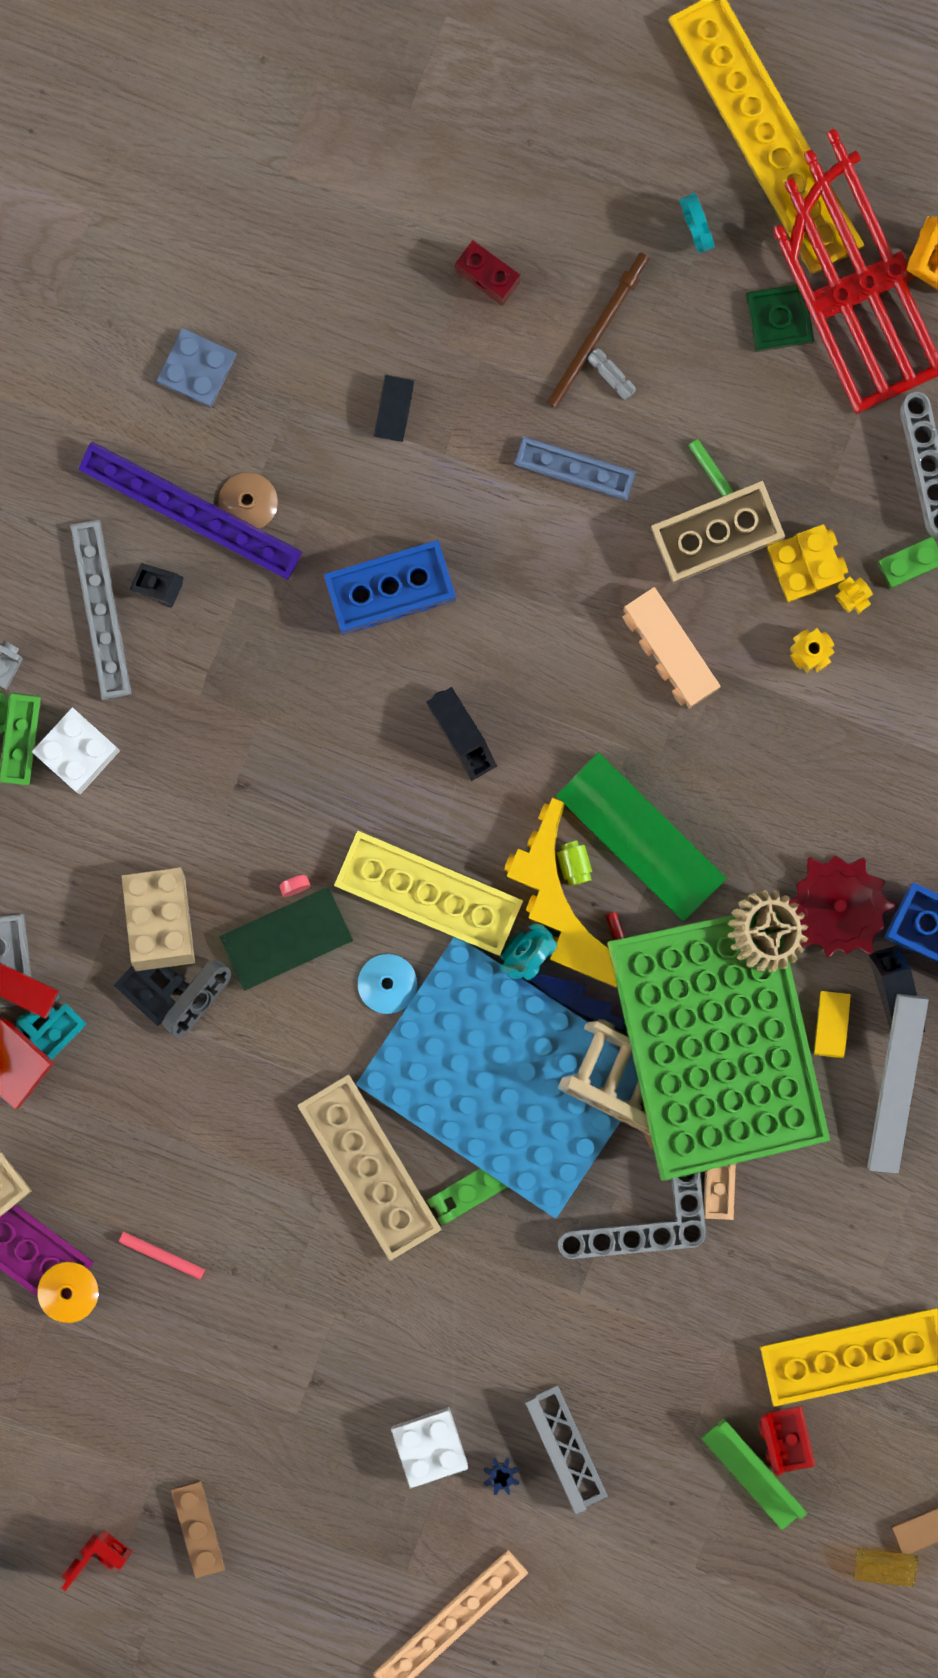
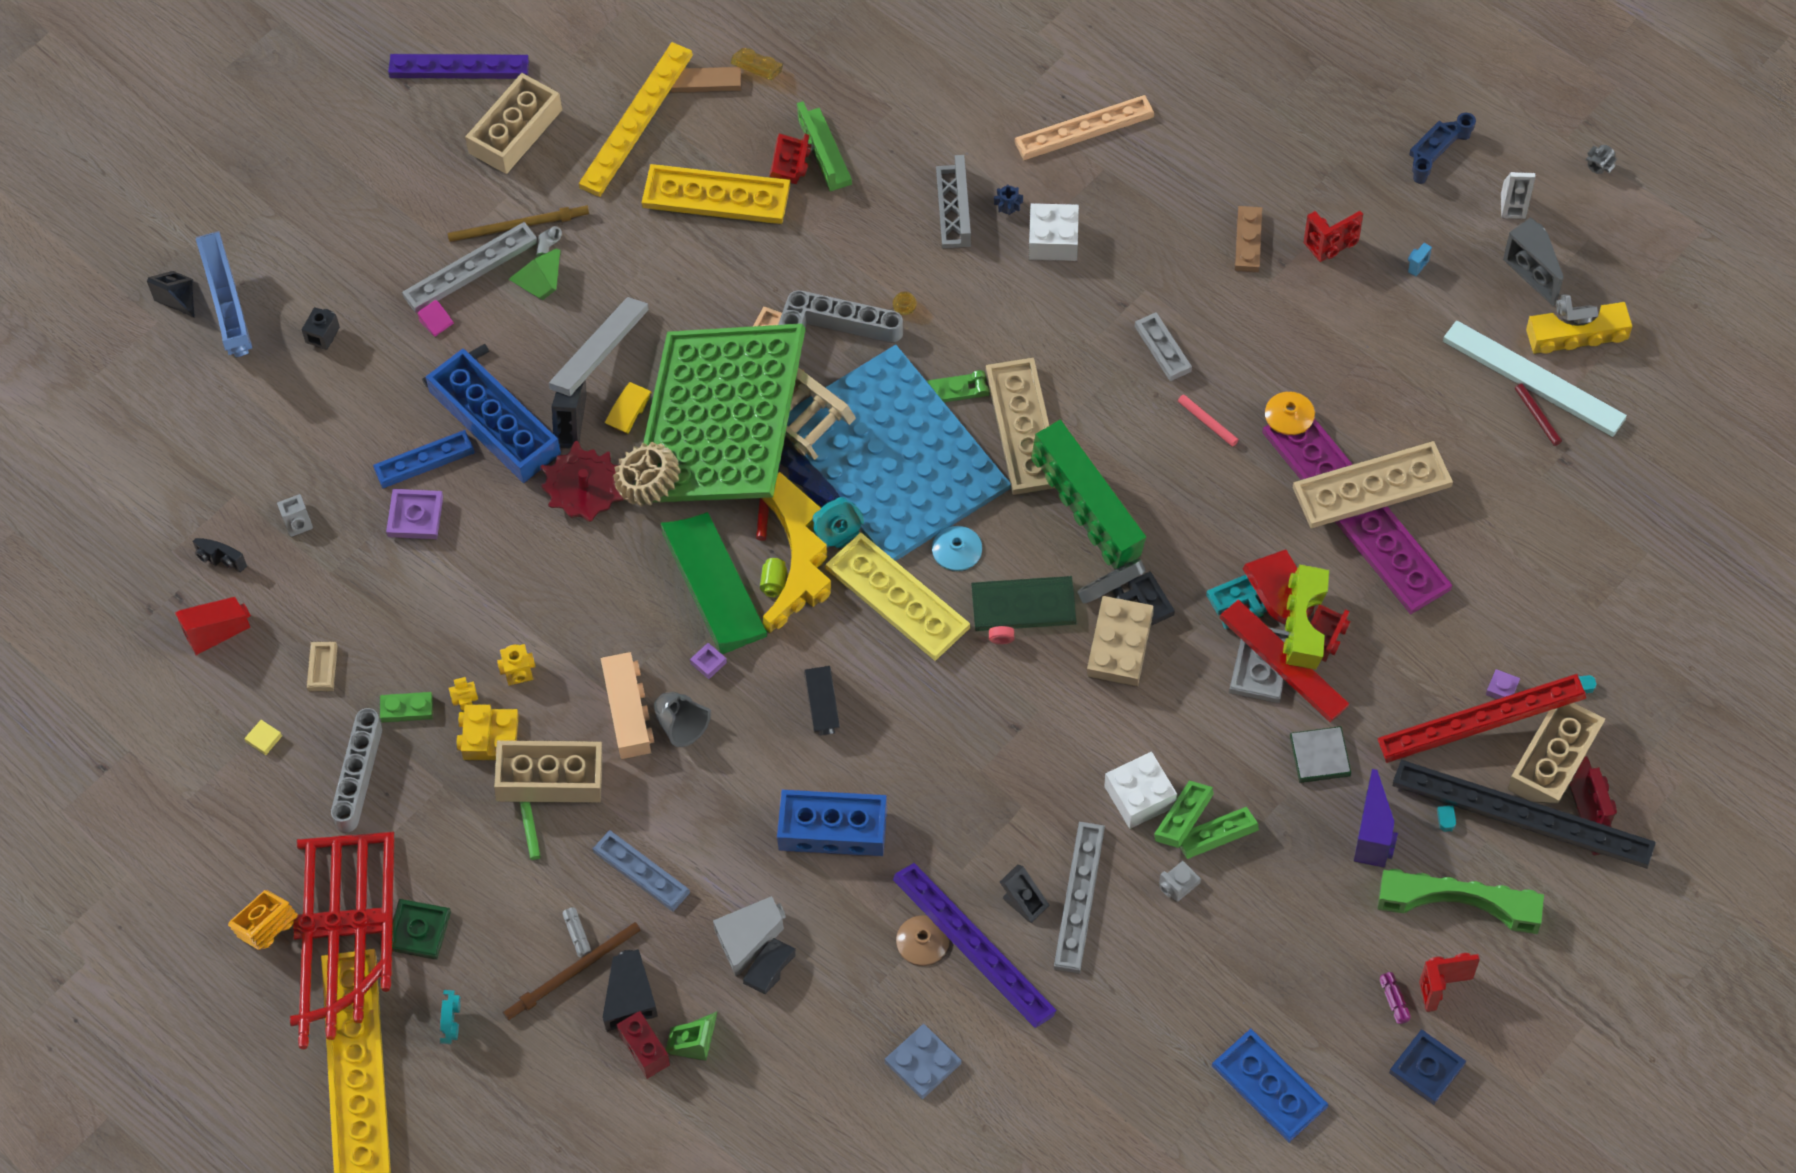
camera: 155 degrees left, 25 degrees down
(246, 1335) = (1163, 346): none -> light grey plate
(255, 1085) = (1087, 495): none -> green brick
(431, 436) = (749, 931): none -> light grey slope
(443, 305) = (692, 1039): none -> bright green slope
(527, 326) = (627, 990): none -> black slope
(574, 1294) = (904, 298): none -> clear yellow plate
(605, 736) = (708, 661): none -> medium lavender plate
(607, 652) = (681, 718): none -> dark grey helmet

